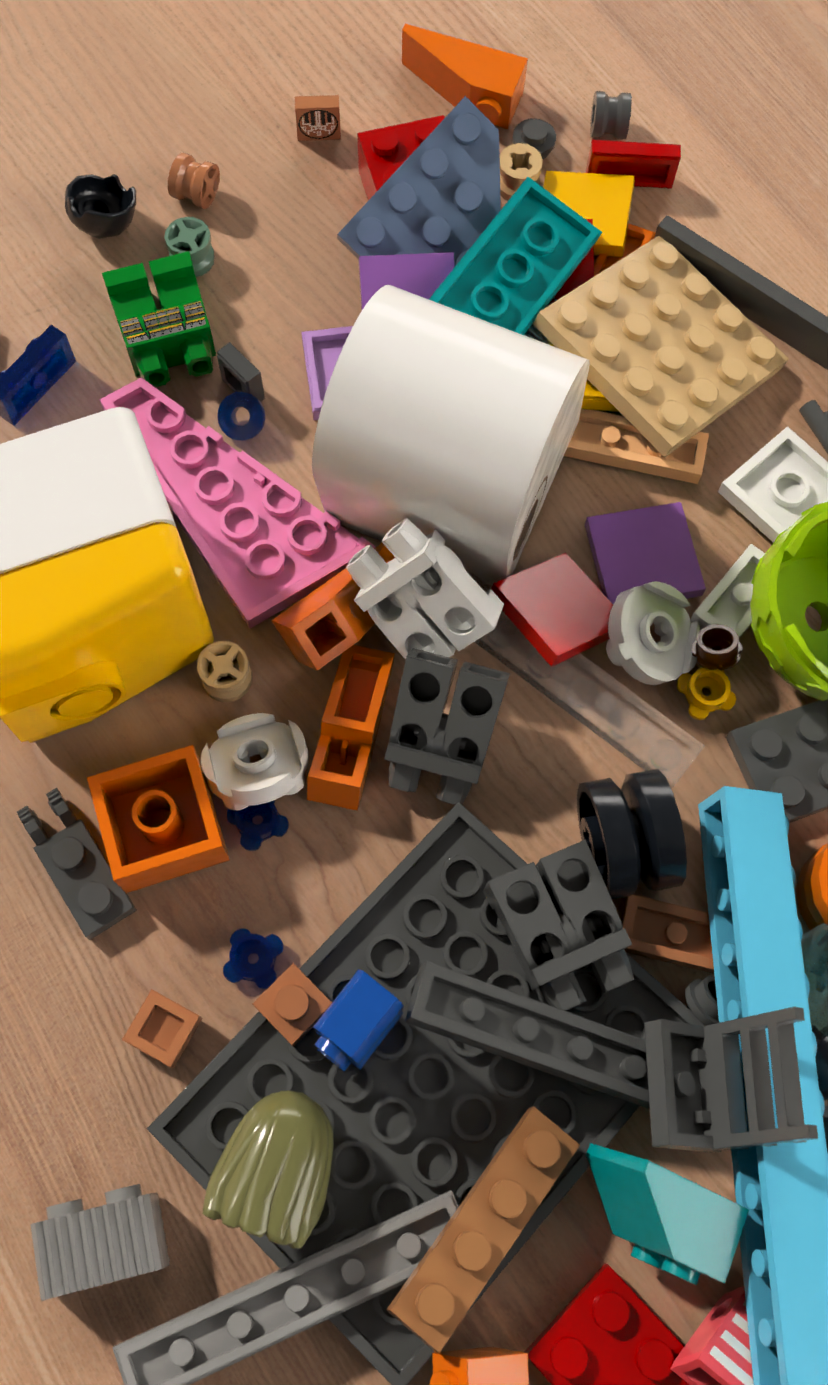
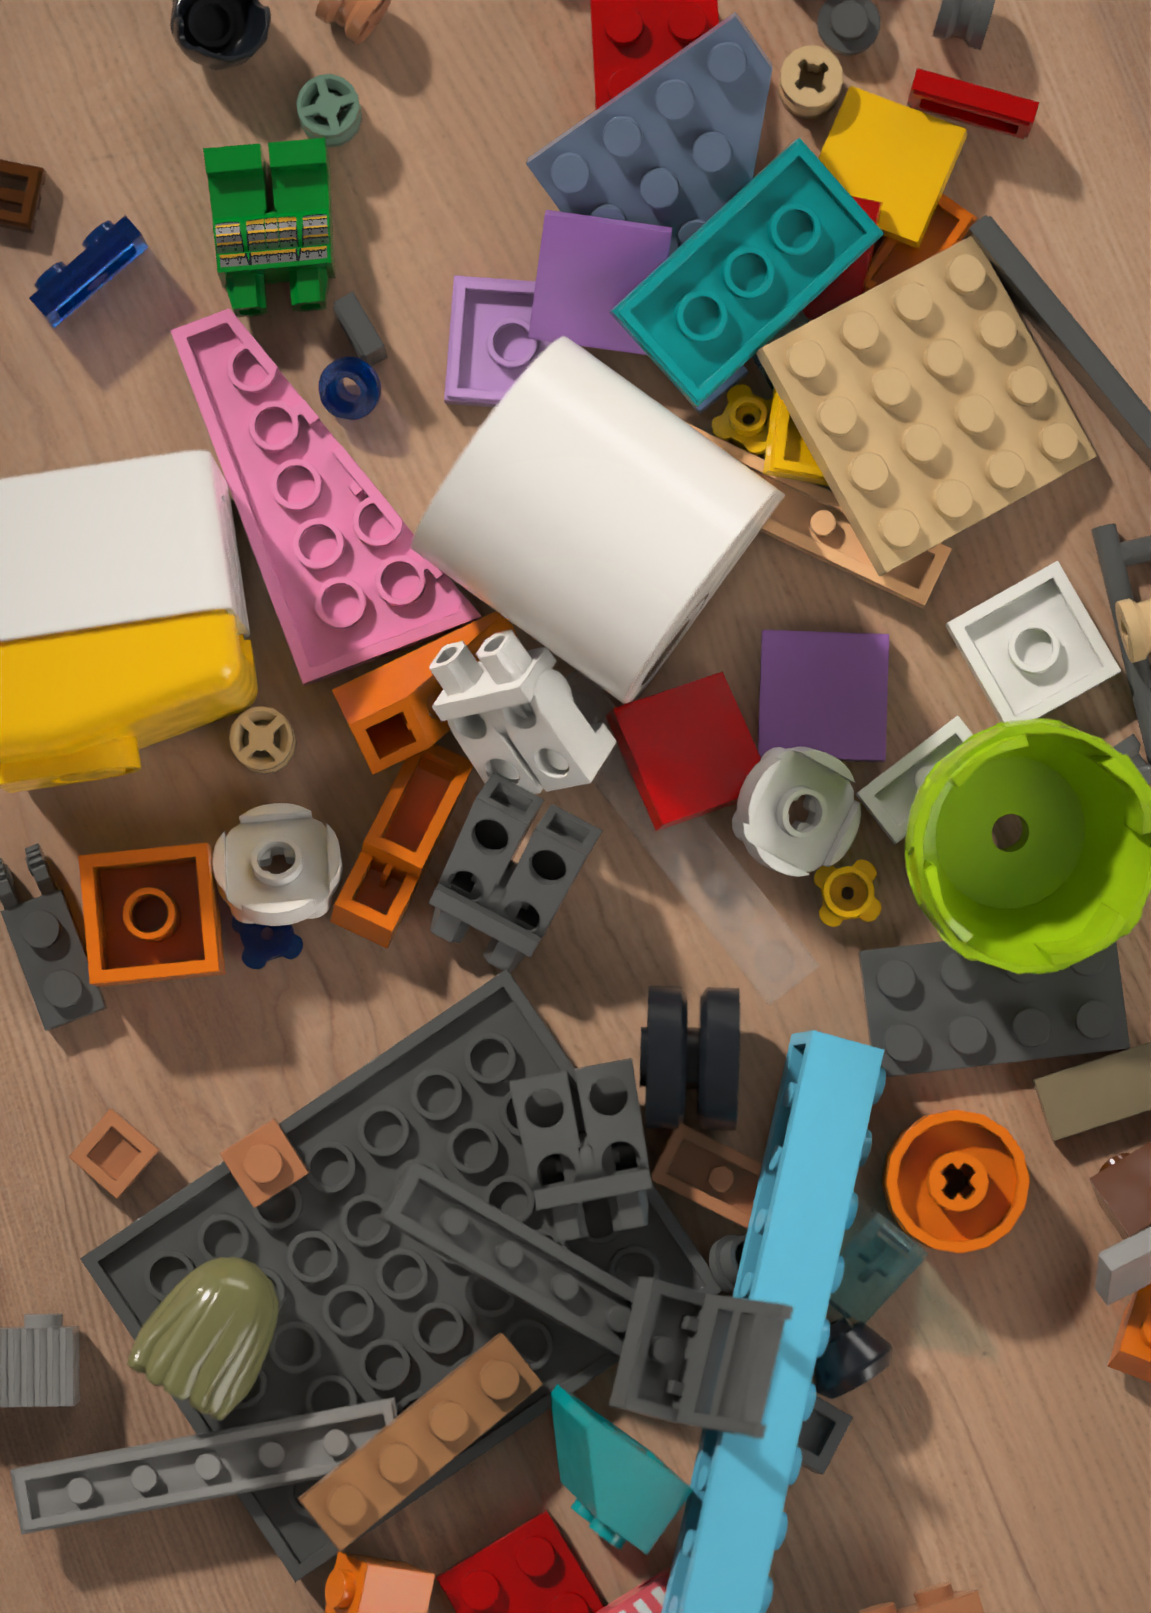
camera: 20 degrees right, 15 degrees up
(242, 947) = (225, 1078): clear blue plate -> none
(357, 1022) = (327, 1205): blue brick -> none
(717, 647) = (868, 832): reddish brown plate -> none

